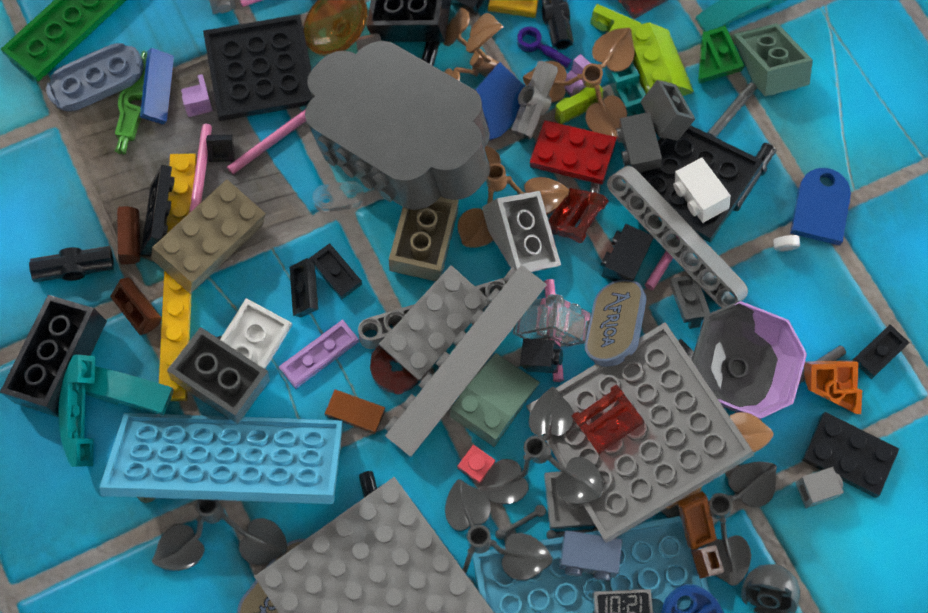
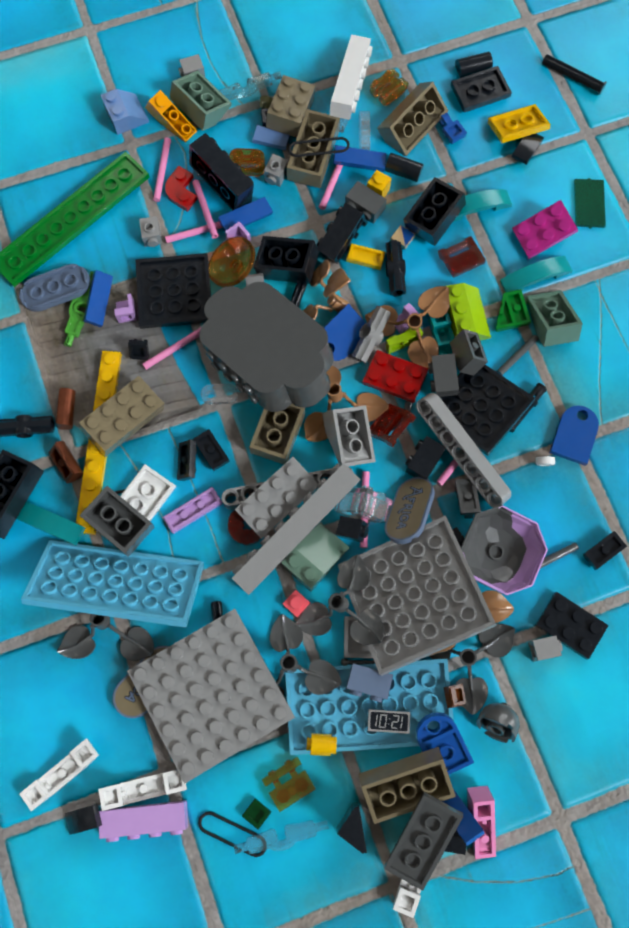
camera: 10 degrees right, 5 degrees up
(72, 410) = (12, 534): teal slope -> none
(157, 209) = (88, 392): black plate -> none
(201, 165) = (122, 364): bright pink piece -> none
(355, 411) = (213, 555): dark orange tile -> none
(539, 511) = (338, 643): dark grey hinge -> none
(547, 50) = (387, 297): dark purple piece -> none
(608, 20) = (435, 278): lime slope -> none
(611, 425) = (395, 590): clear red plate -> none
(697, 520) = (450, 666): dark orange tile -> none
(701, 190) = (485, 416): white brick -> none
(835, 382) = (567, 570): orange slope -> none

